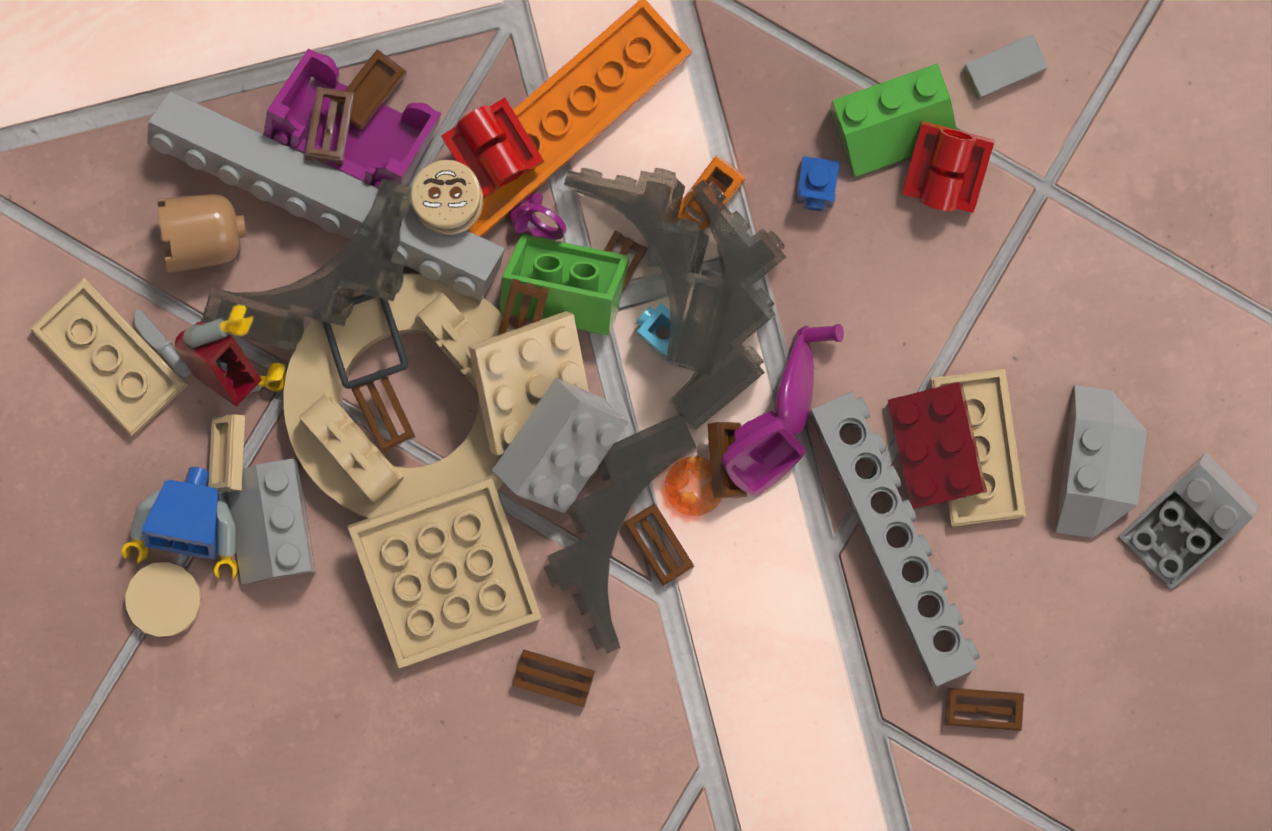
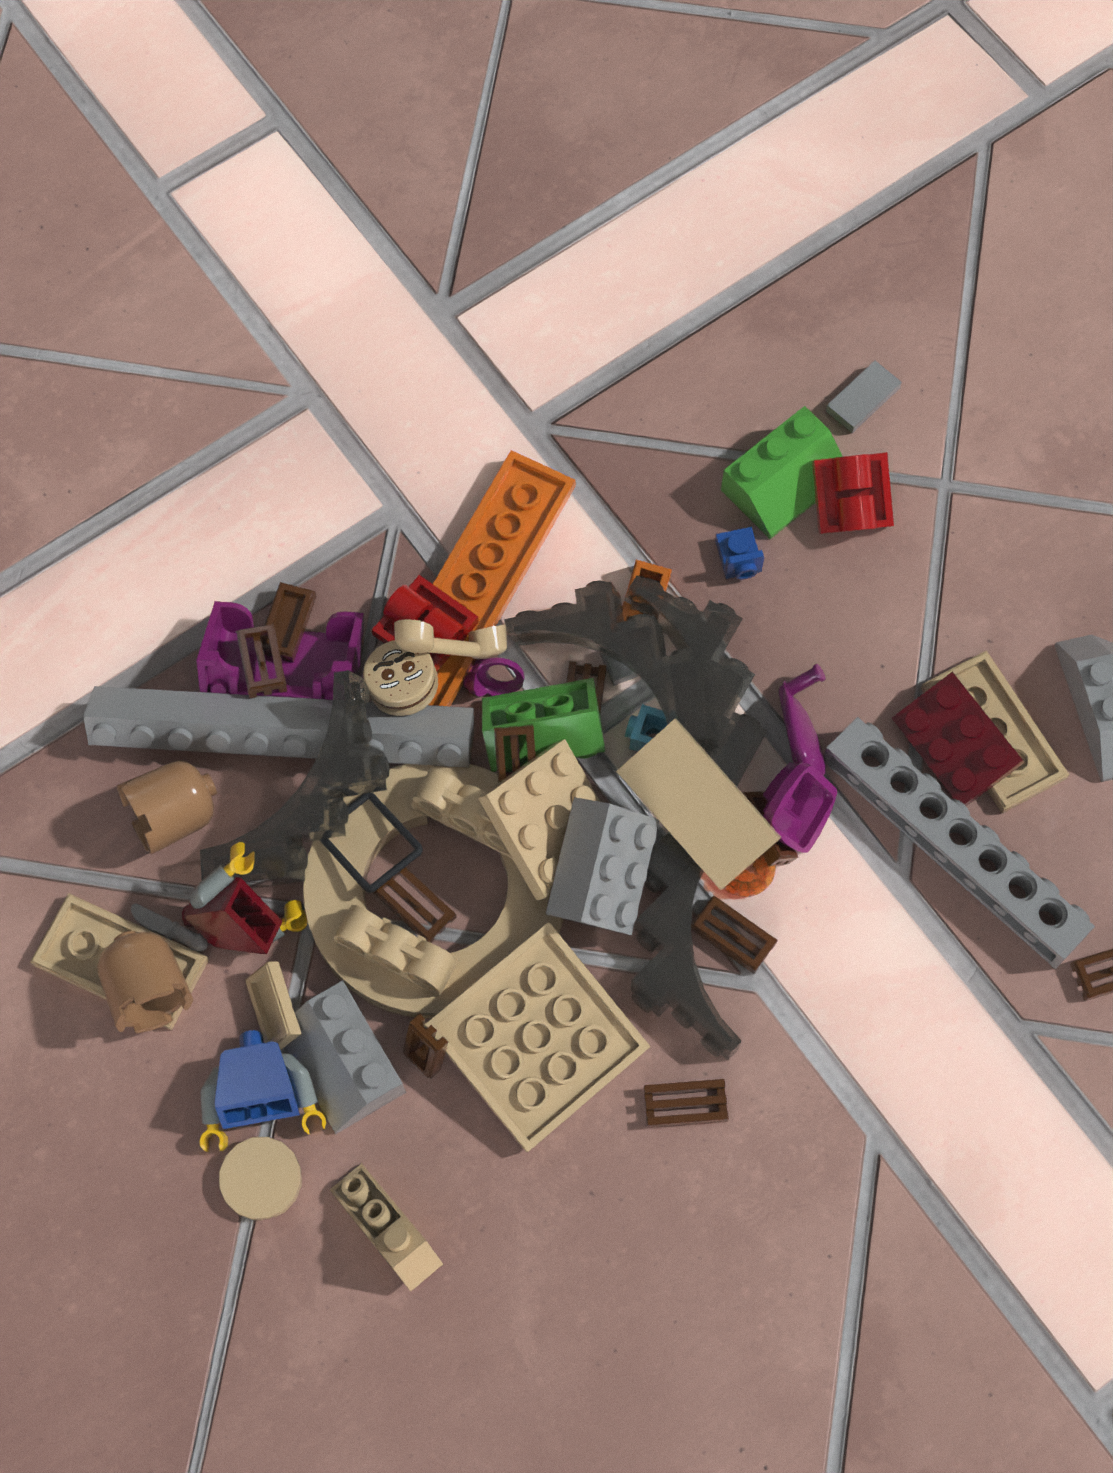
camera: 20 degrees left, 15 degrees down
(118, 390) = (142, 981): none -> medium nougat cylinder
(254, 684) = (386, 1227): none -> tan slope
(343, 546) = (430, 1051): none -> reddish brown tile
(540, 186) = (419, 638): none -> tan piece
(667, 423) = (698, 804): none -> tan tile

